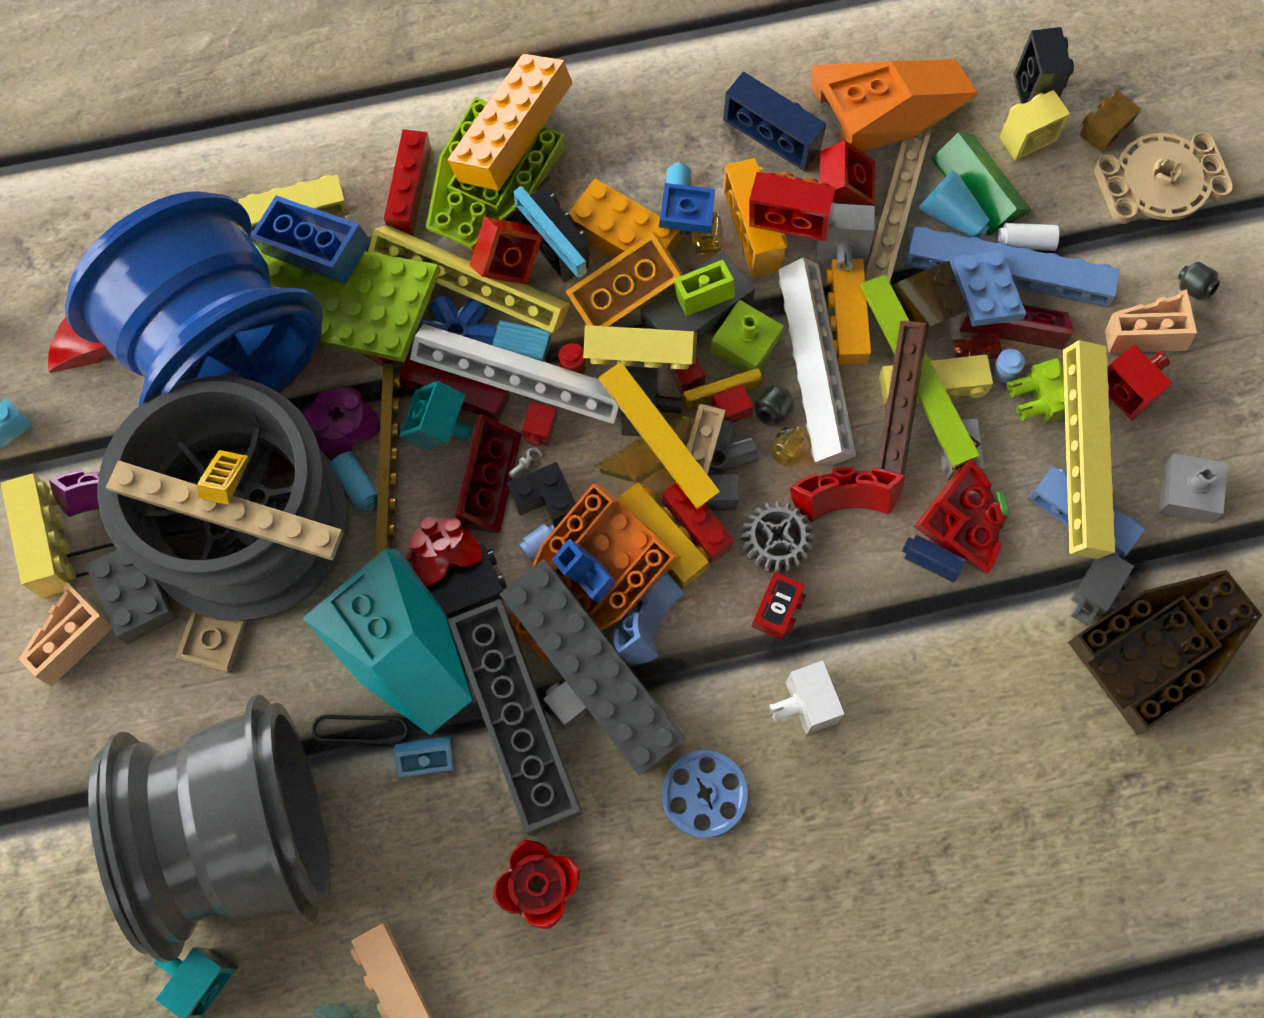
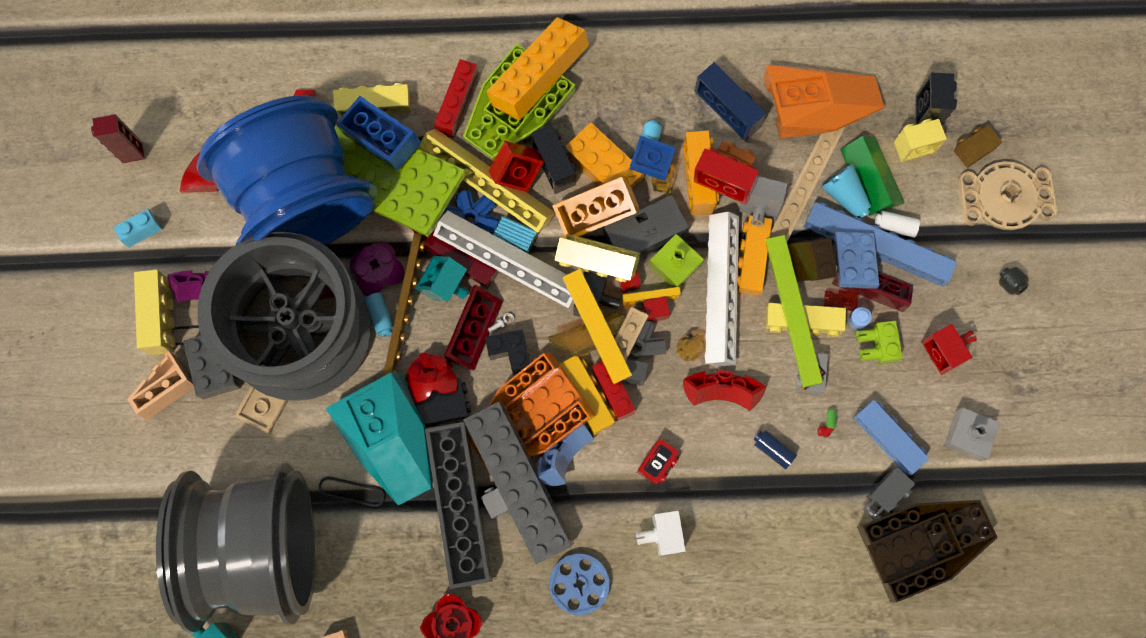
camera: 10 degrees right, 5 degrees up
(223, 493) = (277, 322): yellow slope -> none
(238, 515) = (282, 334): tan plate -> none
(424, 756) = (392, 519): dark azure slope -> none
(534, 540) = (497, 381): light blue brick -> none
(539, 424) = (516, 297): red brick -> none
(550, 232) = (549, 161): medium azure tile -> none
(572, 358) = (547, 254): red brick -> none
(585, 569) = (527, 411): blue brick -> none
(704, 287) = (651, 223): lime brick -> none
(768, 530) = (661, 406): light grey gear -> none
(774, 405) = (685, 315): pearl dark grey head -> none
(850, 173) = (774, 155): red brick -> none
(902, 396) = (777, 329): reddish brown tile -> none
(965, 518) = (803, 425): red brick -> none
(1088, 450) = (901, 394): light yellow brick -> none
(1153, 327) = (971, 310): light nougat wedge -> none

